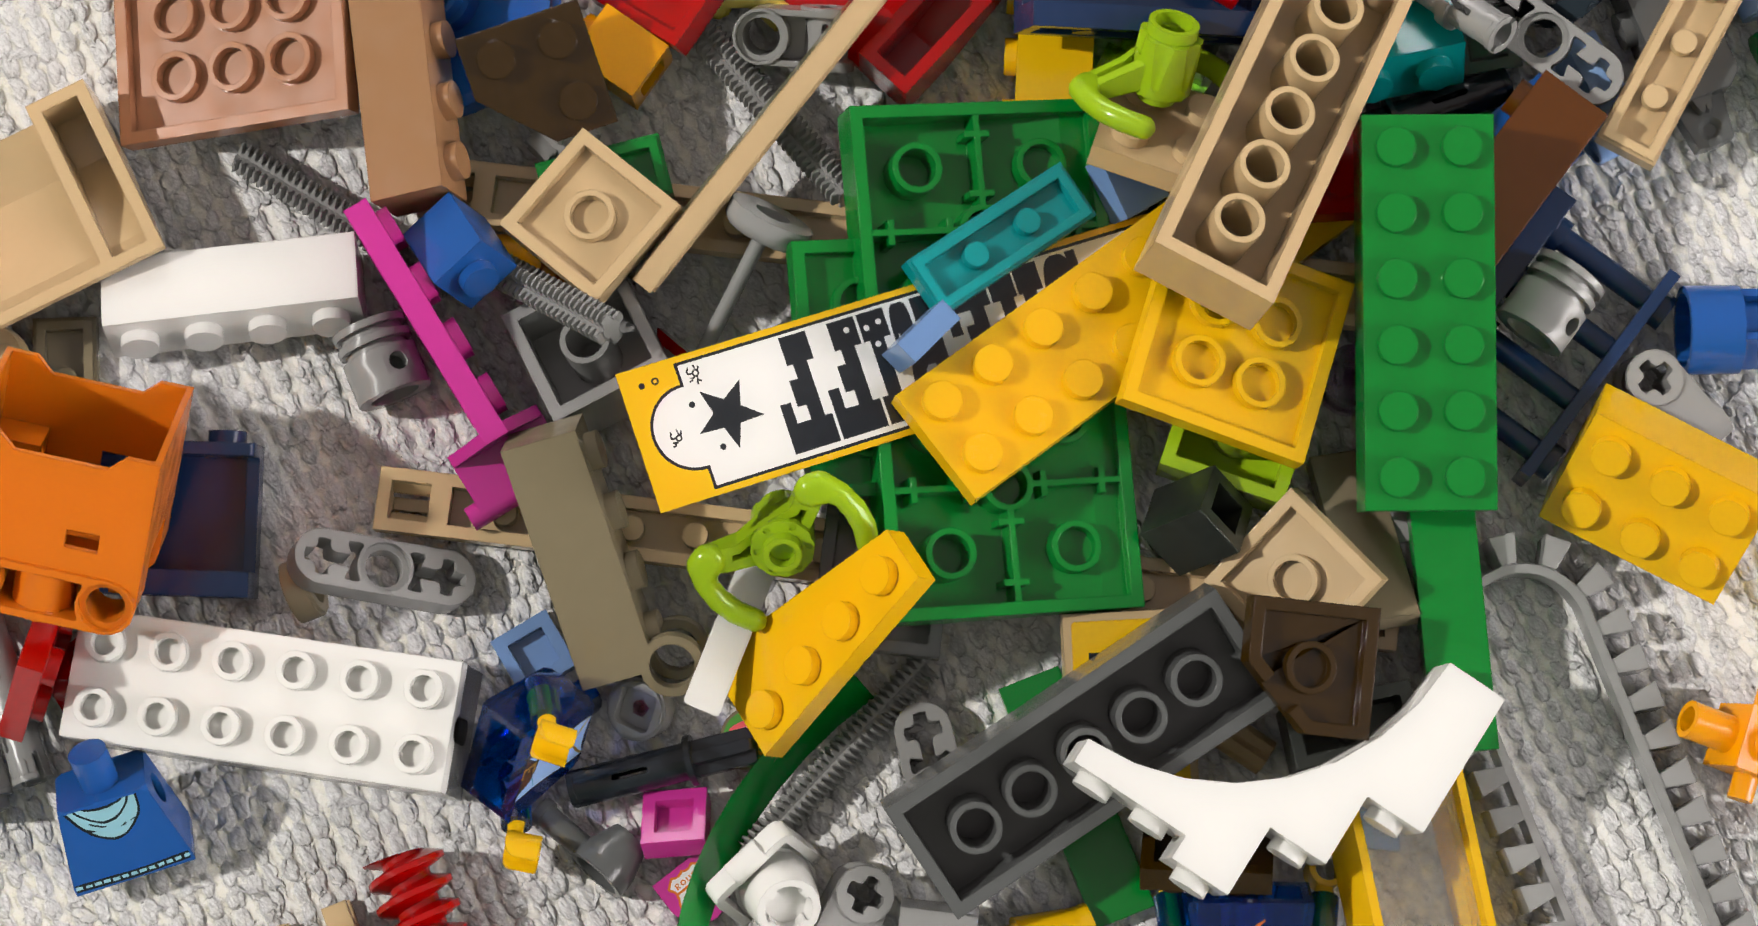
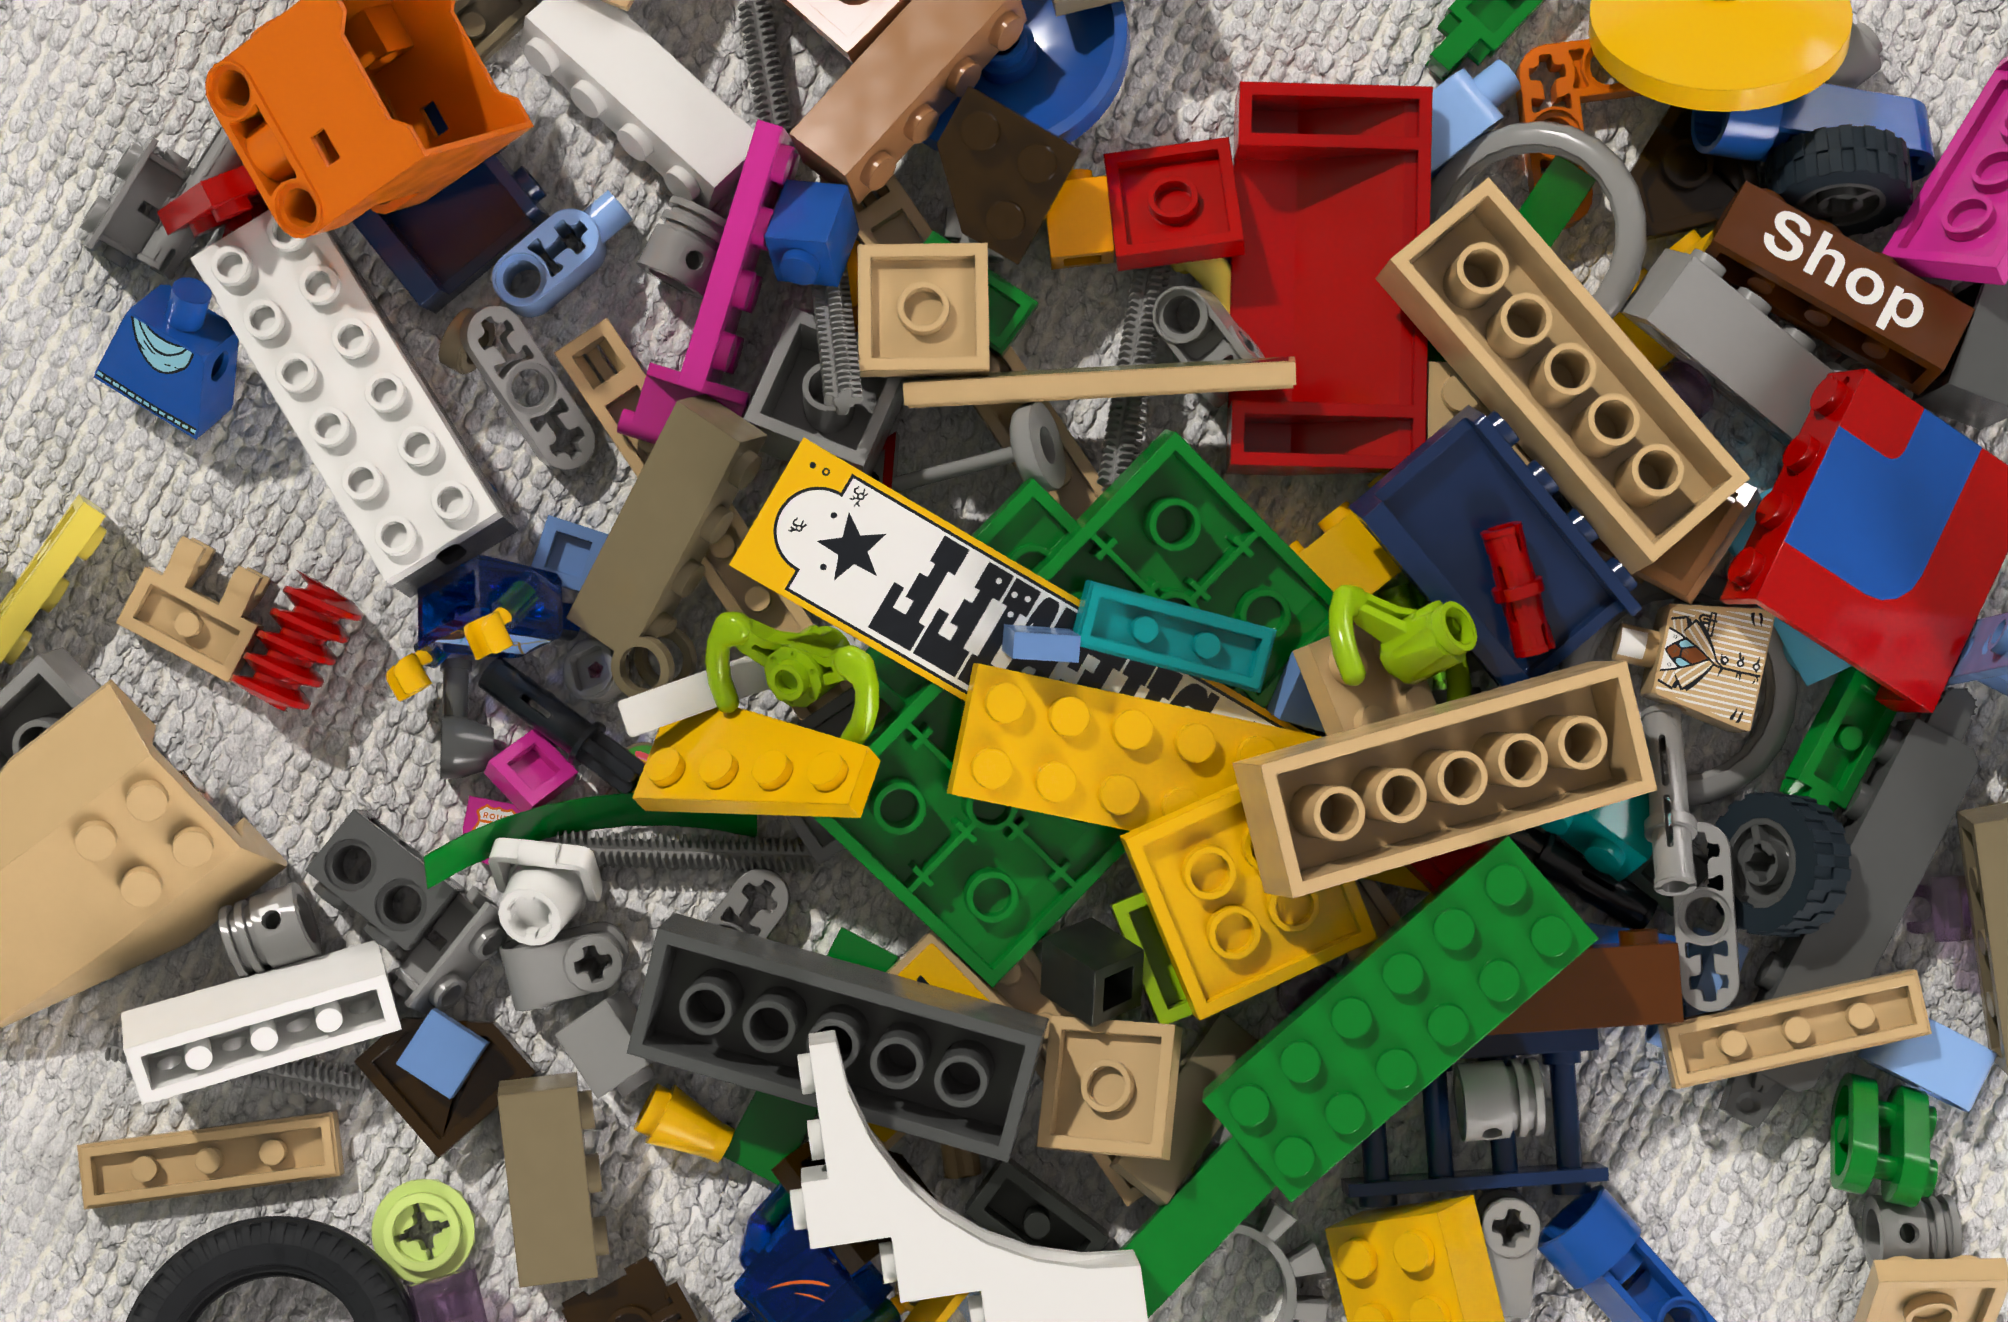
camera: 45 degrees right, 5 degrees up
(300, 413) = (592, 225): none -> light blue piece
(1314, 662) = (1052, 1160): dark brown plate -> none

